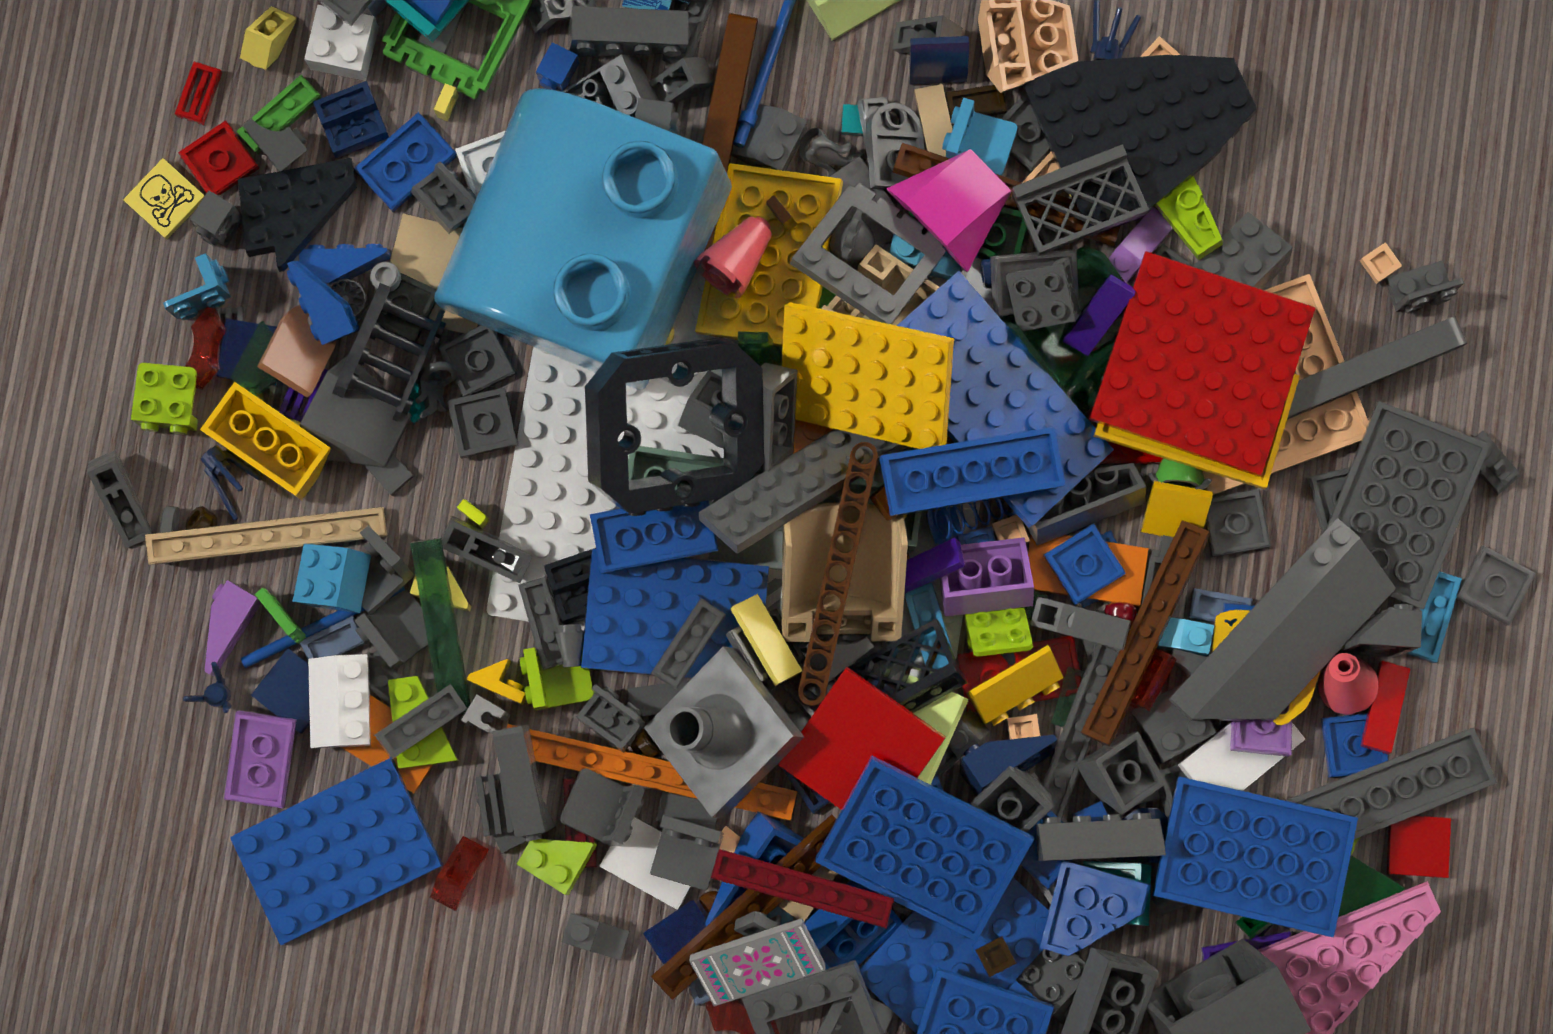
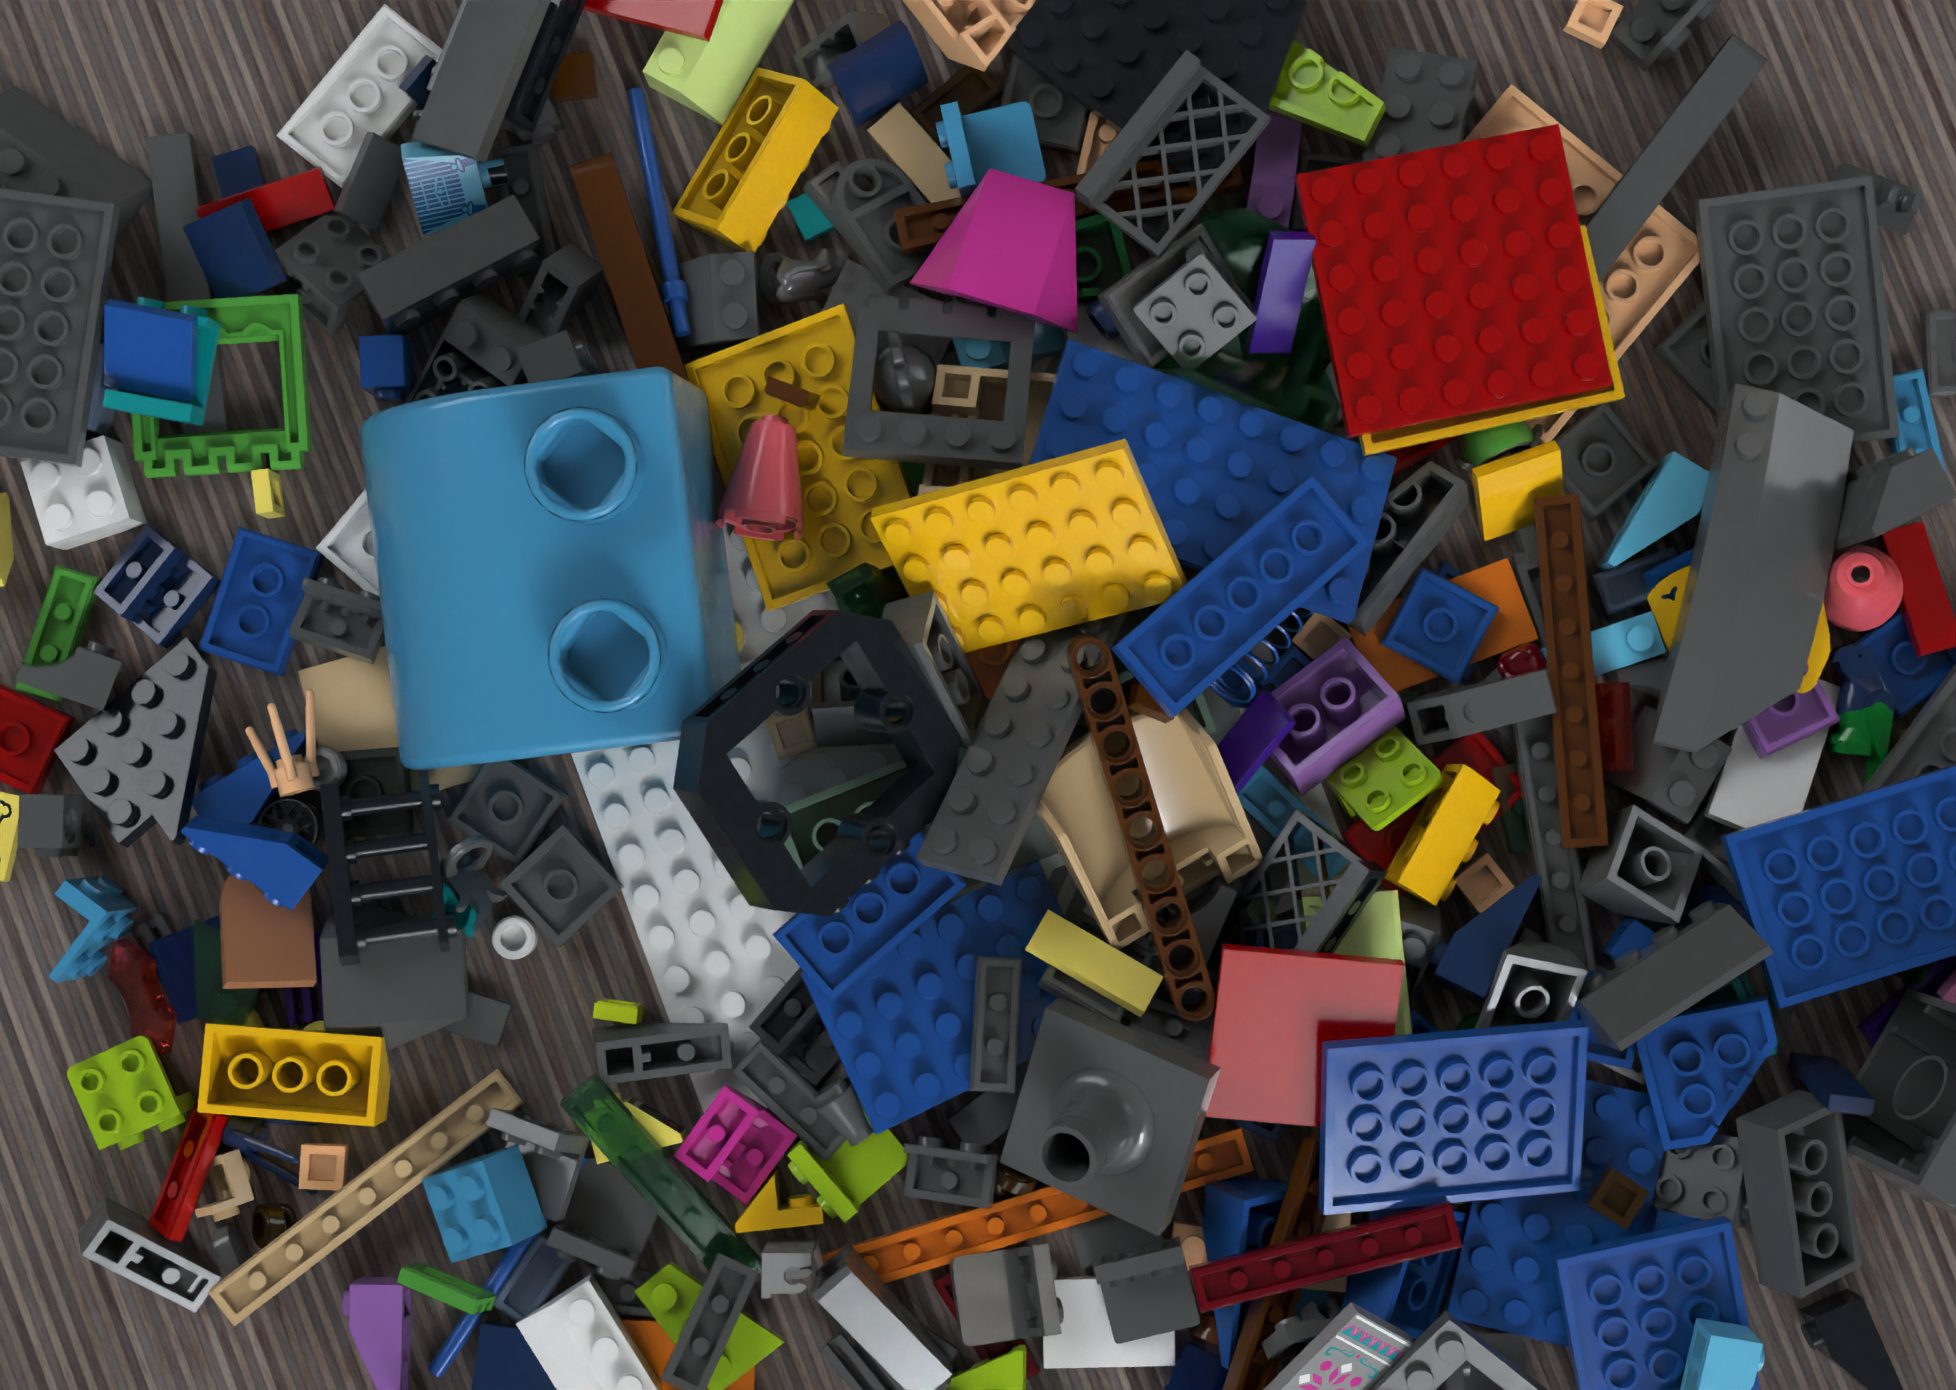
camera: 30 degrees left, 5 degrees up
(171, 463) = (187, 1173): none -> red tile
(191, 483) = (230, 1184): none -> tan bracket
(250, 505) = (323, 1166): none -> light nougat plate
(367, 268) = (292, 772): none -> light nougat plant
(437, 437) = (514, 937): none -> white tile
(496, 629) = (736, 1143): none -> dark pink slope
(668, 410) = (792, 733): none -> tan tile
(839, 70) = (756, 159): none -> yellow slope
(1161, 962) = (1832, 1084): none -> dark blue tile
(1256, 572) = (1666, 502): none -> medium azure slope
(1310, 754) = (1862, 706): none -> animal

